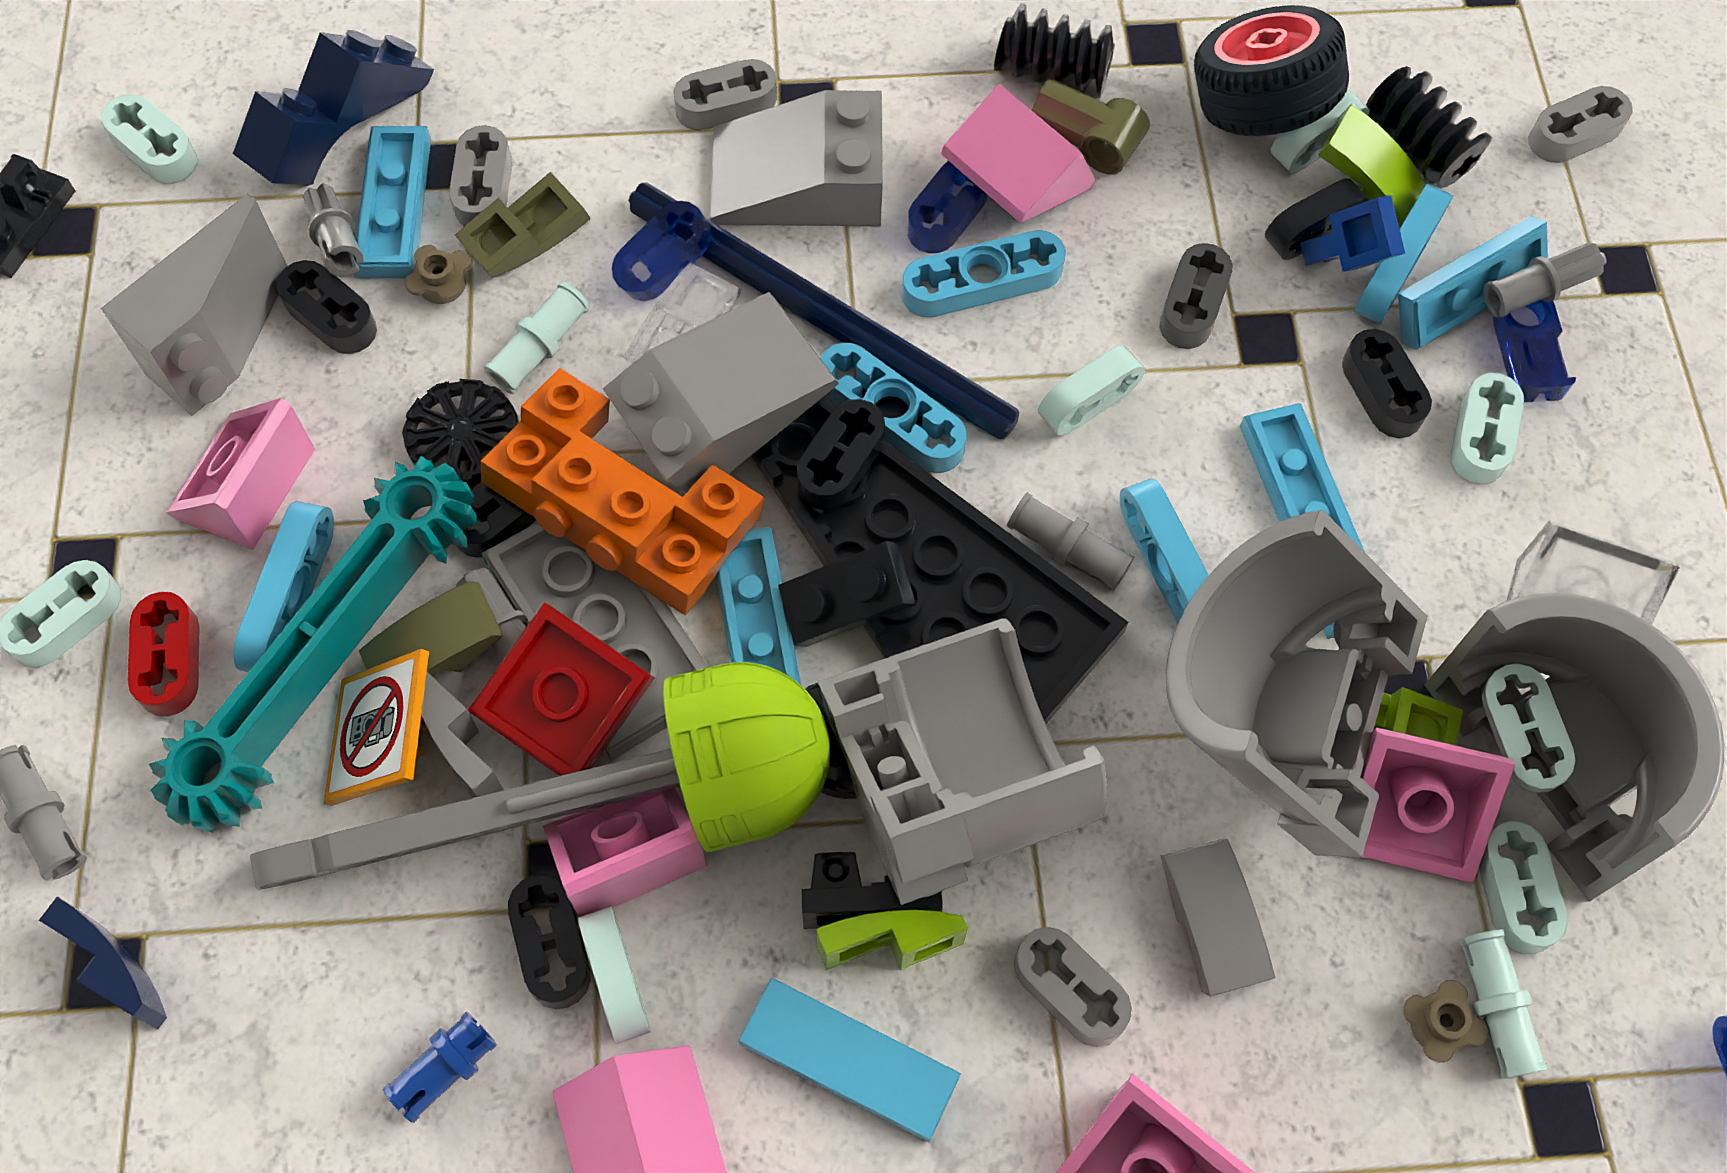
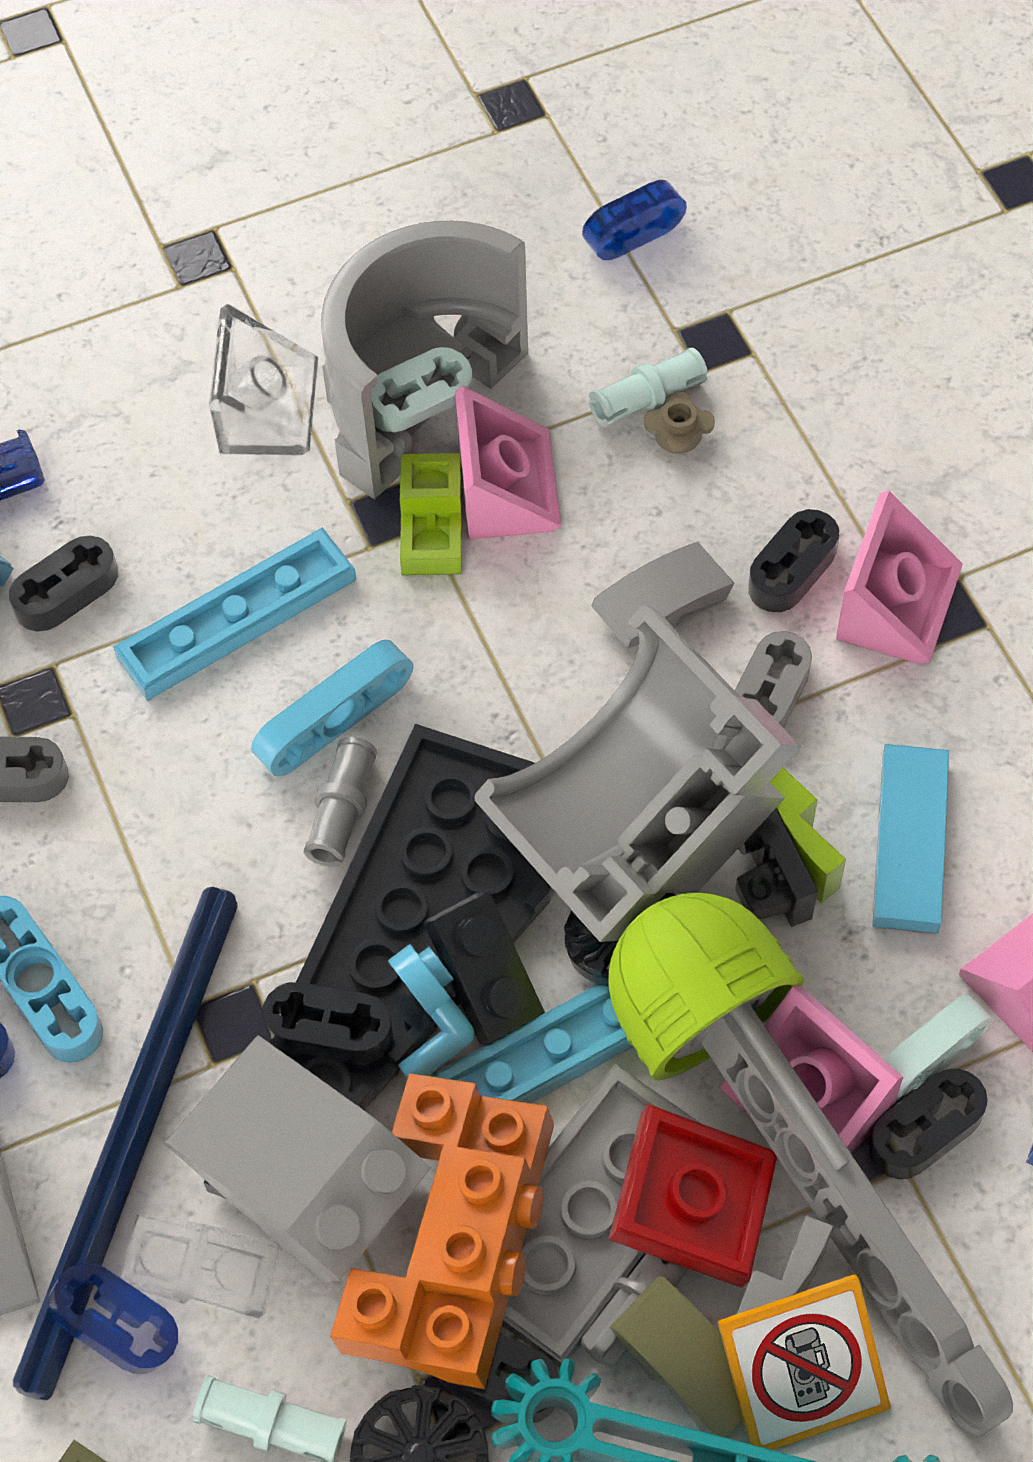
camera: 105 degrees left, 5 degrees down
(838, 532) = (425, 979): none -> medium azure plate
(883, 382) = (238, 965): medium azure beam -> none
(1091, 390) = (160, 827): light aqua beam -> none
(1239, 1067) = (784, 553): none -> black beam
(1285, 713) = (460, 557): light grey piece -> none
(1499, 431) = (90, 494): light aqua beam -> none
(1528, 885) = (539, 392): light aqua beam -> none

